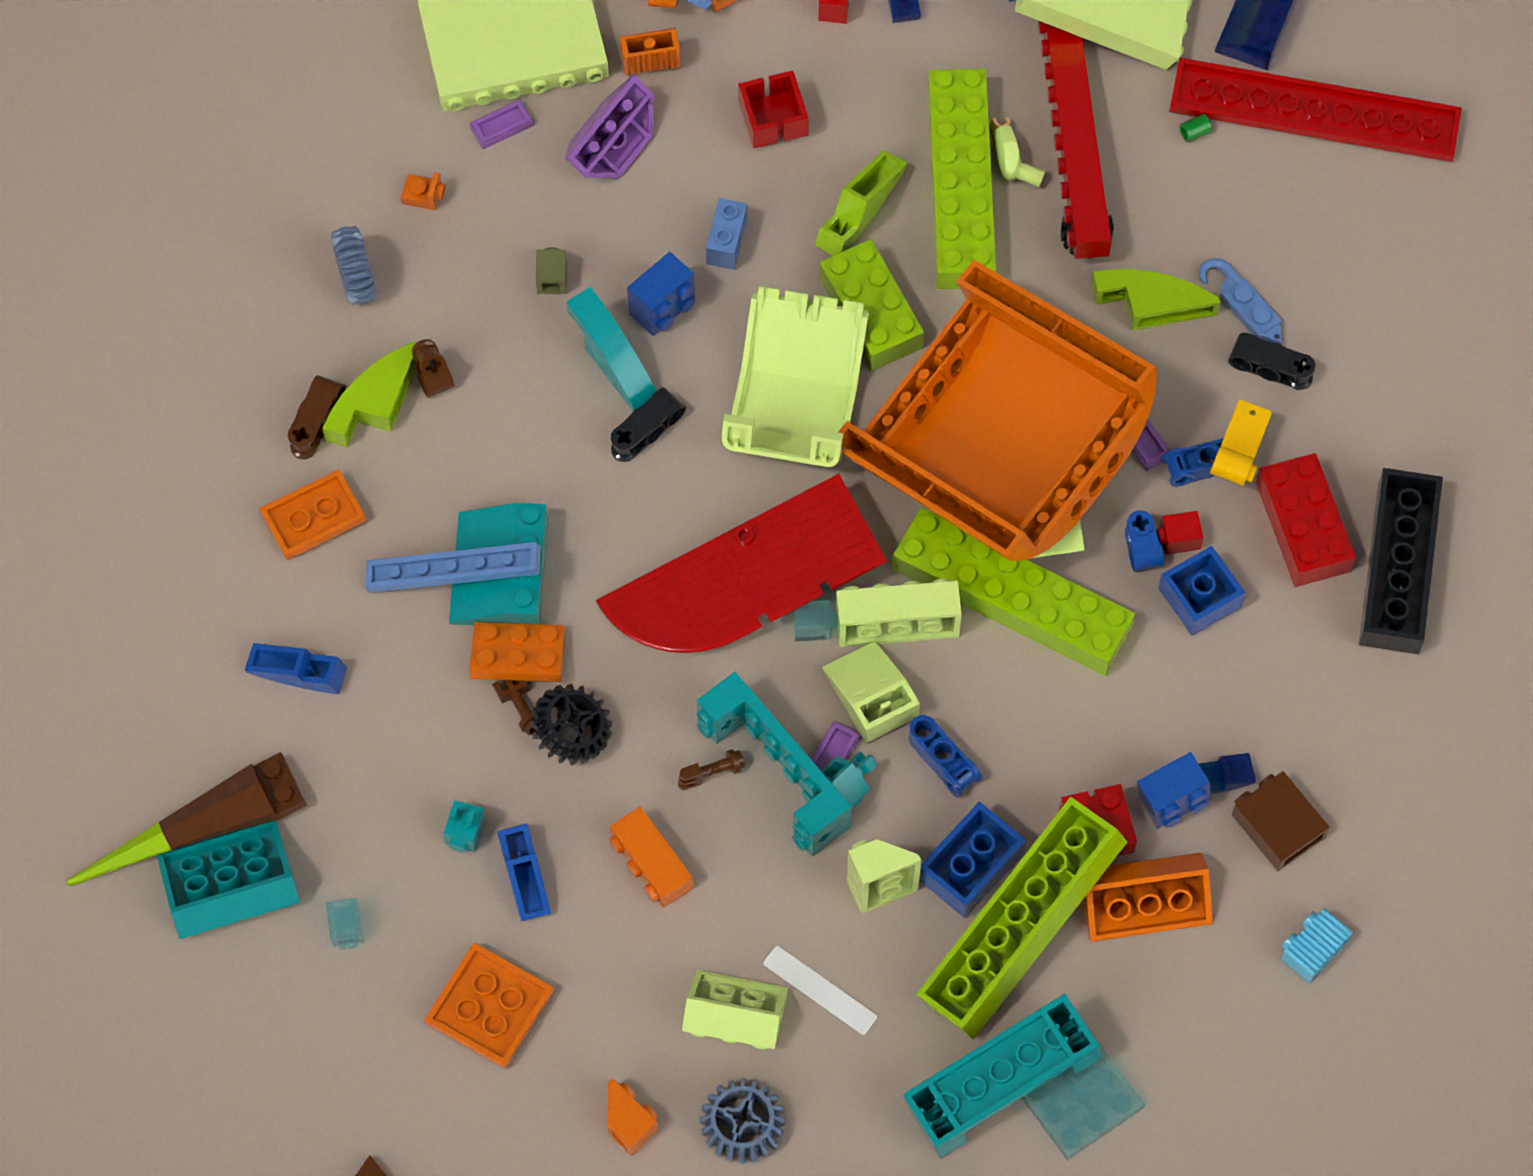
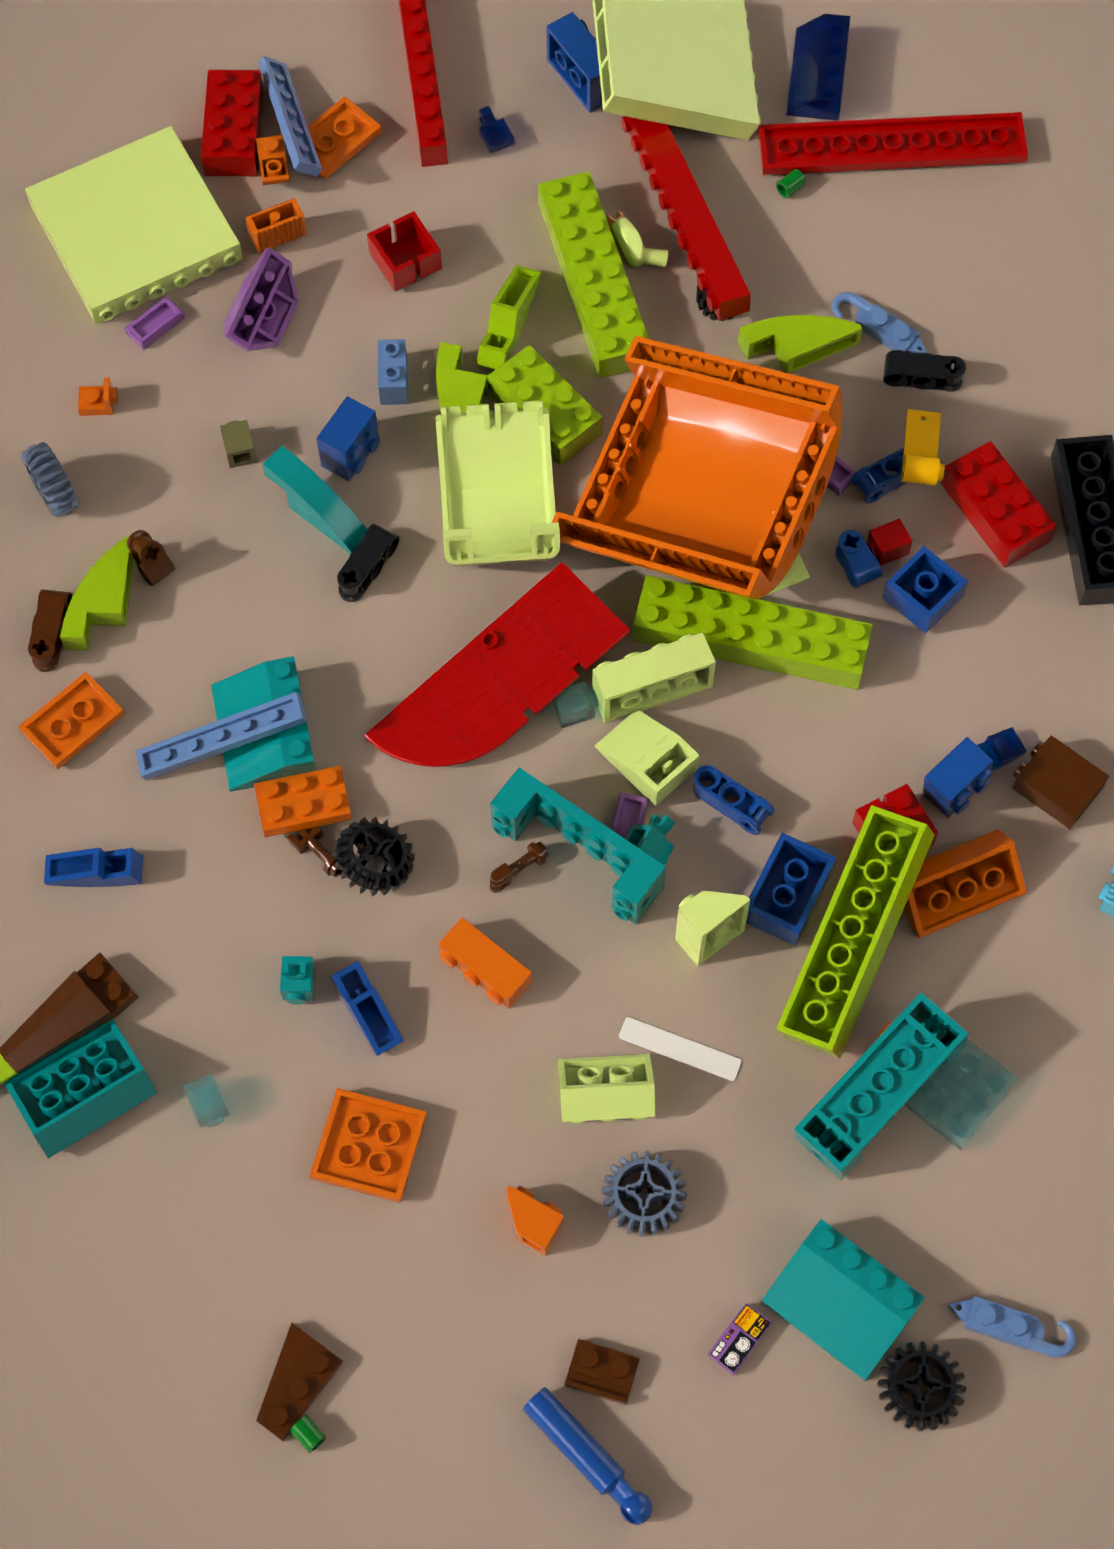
camera: 15 degrees left, 0 degrees up
(784, 264) = (455, 385): none -> lime slope

